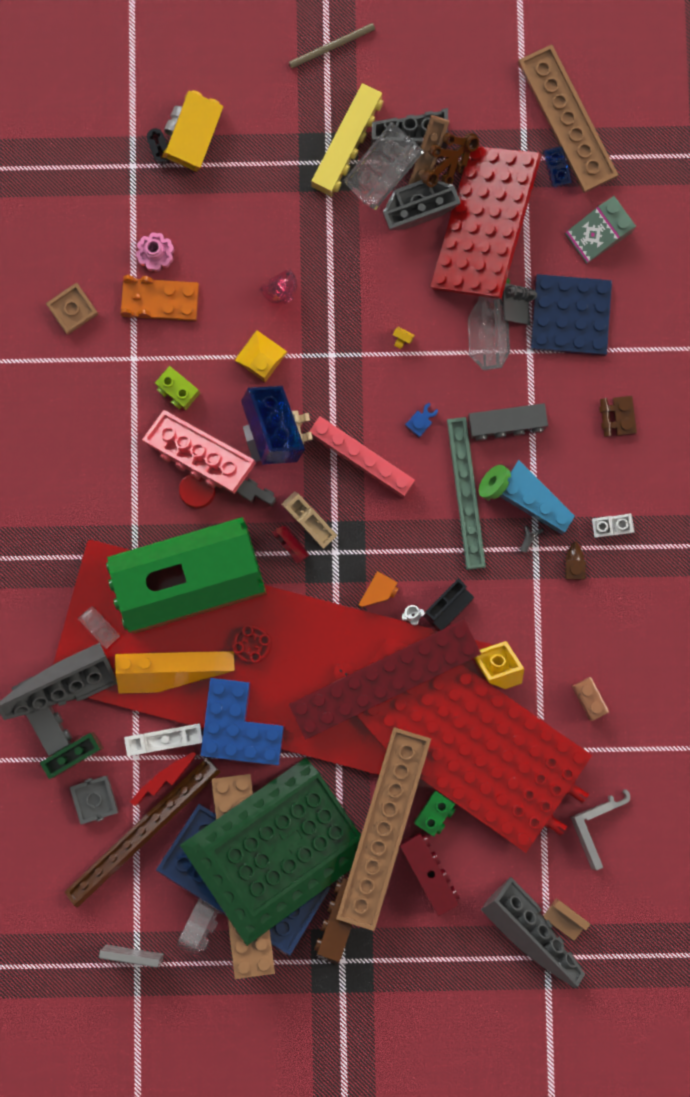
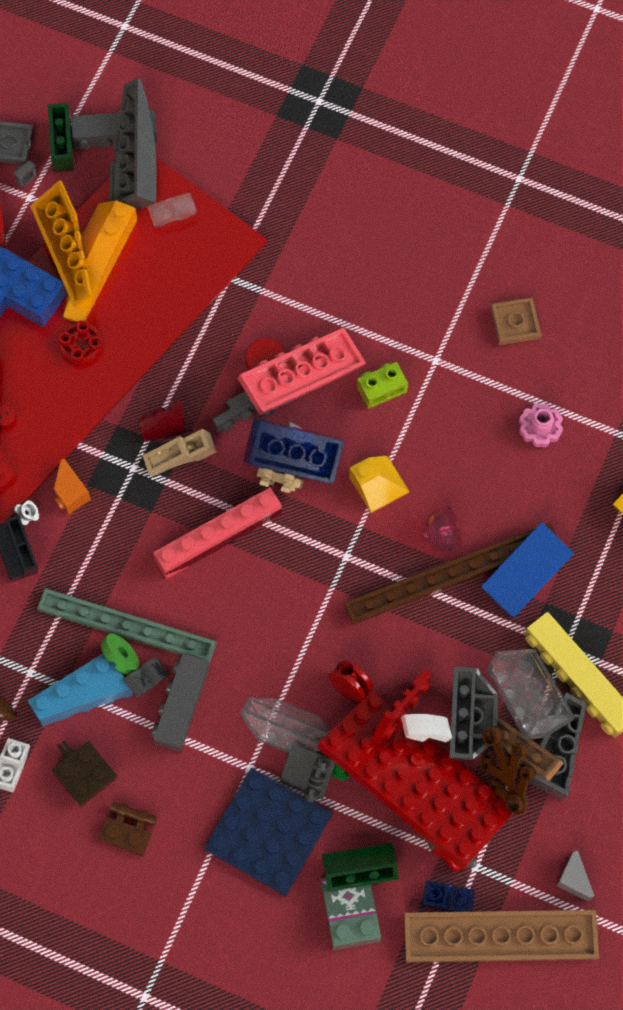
camera: 110 degrees right, 15 degrees down
(118, 770) = (24, 174): none -> dark grey plate
(159, 299) = (487, 410): orange hinge -> none
(163, 739) = (29, 233): white slope -> none
(172, 697) = (62, 235): none -> light orange wedge
(217, 570) = (177, 329): green panel -> none
(283, 211) = (527, 570): none -> blue tile
(310, 267) = (433, 580): none -> reddish brown plate
(403, 336) = (329, 634): yellow tile -> none
(420, 421) = (228, 613): blue plate -> none
(434, 302) = (350, 681): none -> red head
(438, 252) = (408, 700): none -> red wing
(448, 227) = (426, 726): none -> white slope
(500, 455) = (146, 677): none -> dark grey slope
(501, 84) = (575, 878): none -> light grey slope
(529, 537) = (43, 668): dark grey bar -> none
(567, 235) = (360, 867): none -> dark green brick
(594, 467) = (83, 772): none -> dark brown plate

